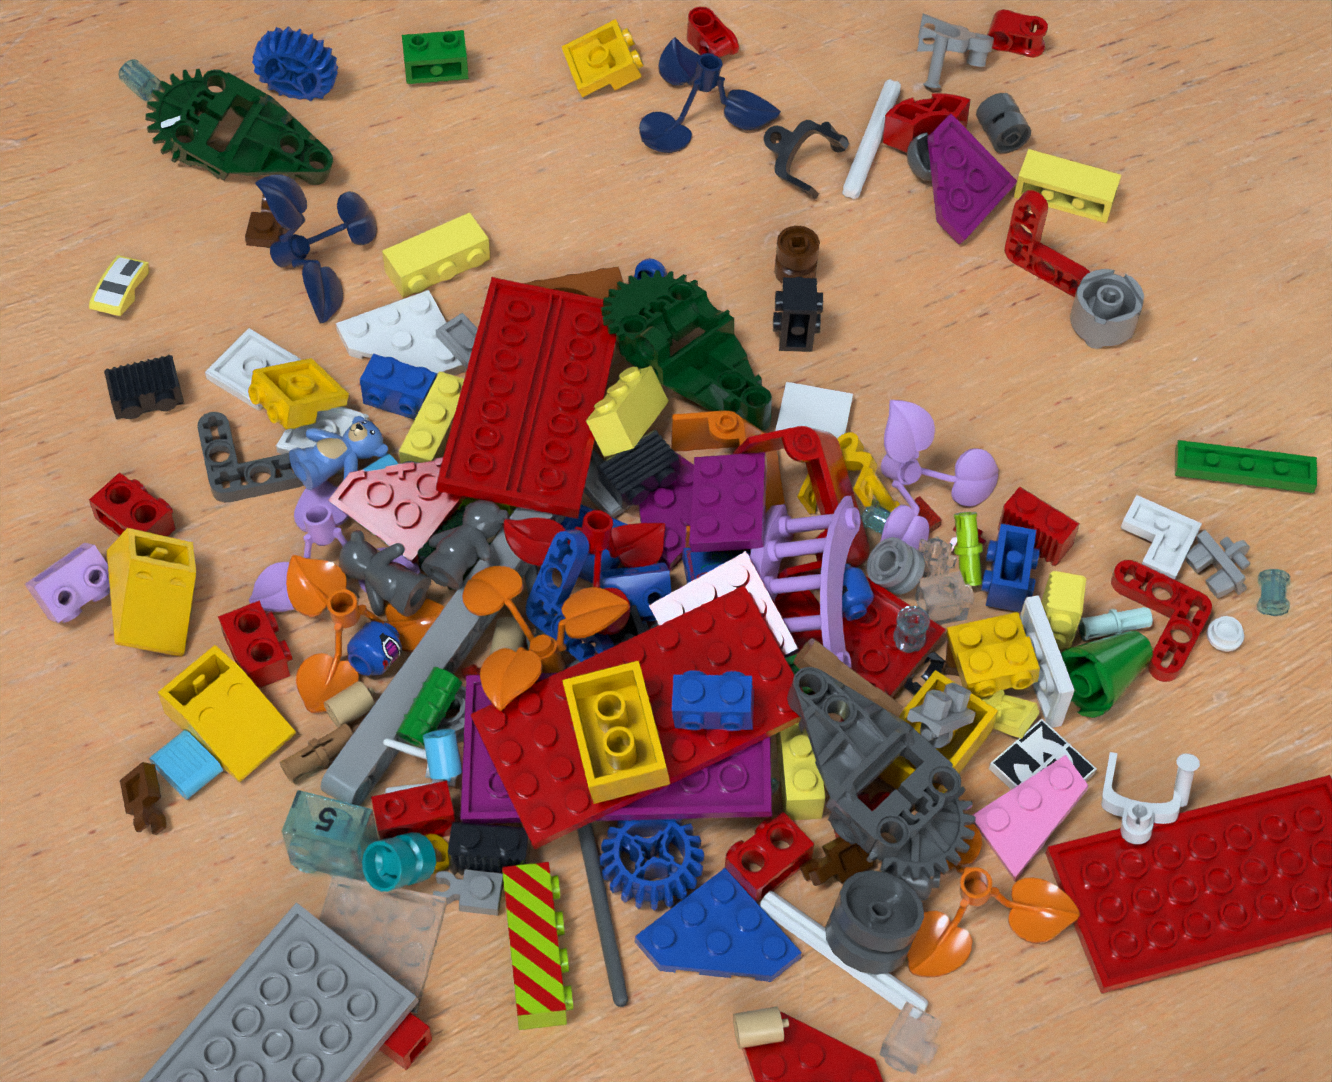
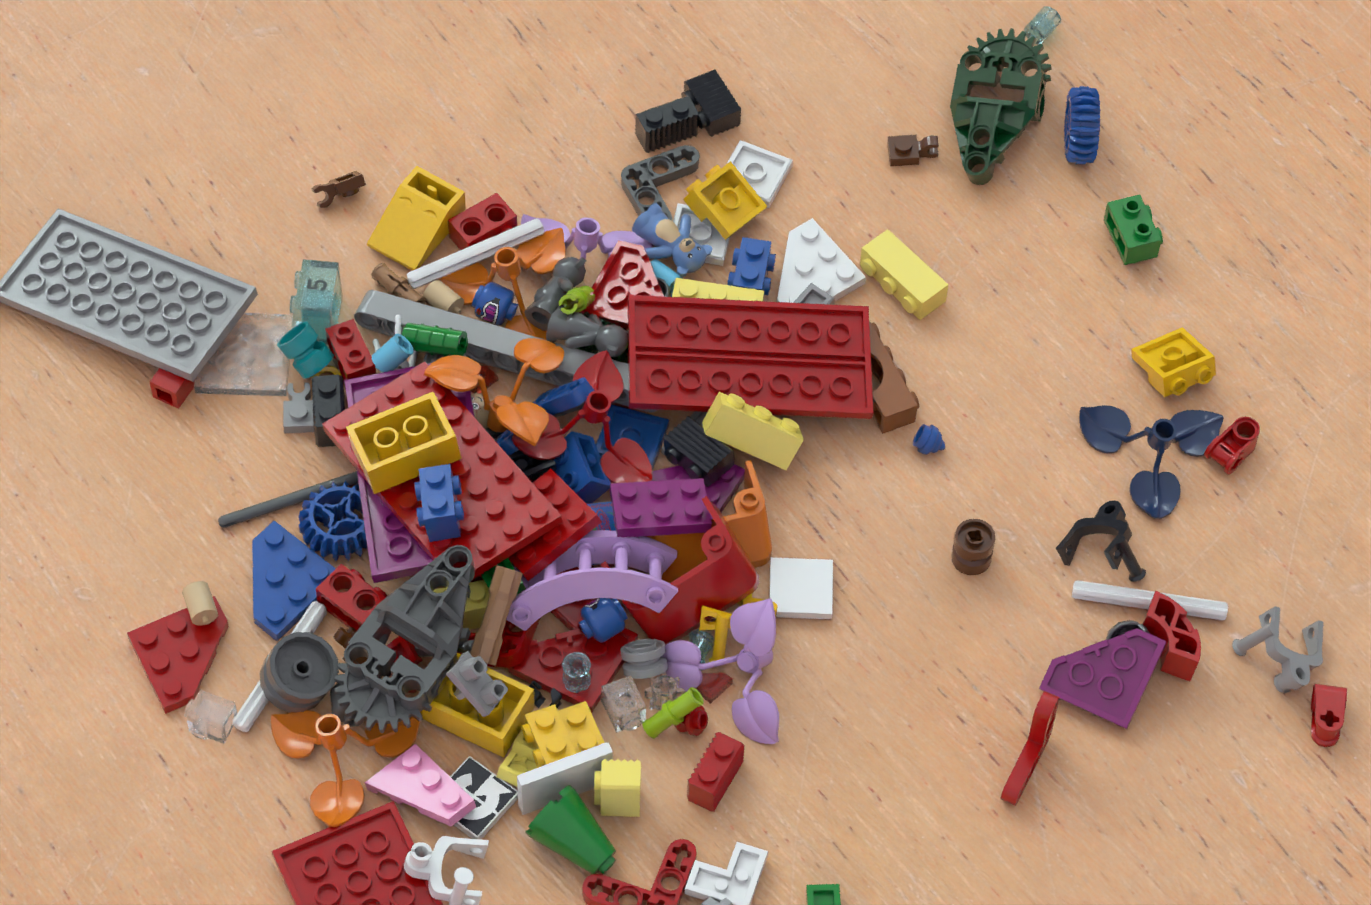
camera: 80 degrees right, 0 degrees up
(71, 583) = (512, 97): lavender brick -> none
(118, 284) = (810, 61): slope -> none
(136, 510) = (588, 123): red brick -> none
(151, 590) = (509, 146): yellow slope -> none
(162, 434) = (666, 124): none -> black brick
(185, 764) = (370, 206): medium azure piece -> none
(287, 205) = (884, 133): dark blue plant -> none
(299, 656) = (474, 253): none -> white axle
(419, 543) = (577, 299): none -> lime pin
(507, 635) = (526, 393): tan piece -> none
(535, 947) = (255, 454): brick -> none
(708, 369) = (822, 494): dark green connector -> none
(798, 313) = (899, 550): black brick -> none
(1003, 123) = (1199, 705): dark grey wheel -> none
(1012, 561) = (663, 749): blue brick -> none
(1069, 185) = (1134, 772): light yellow brick -> none
(1106, 308) = (978, 811): light grey brick -> none
(1114, 623) = (629, 845): light aqua axle -> none

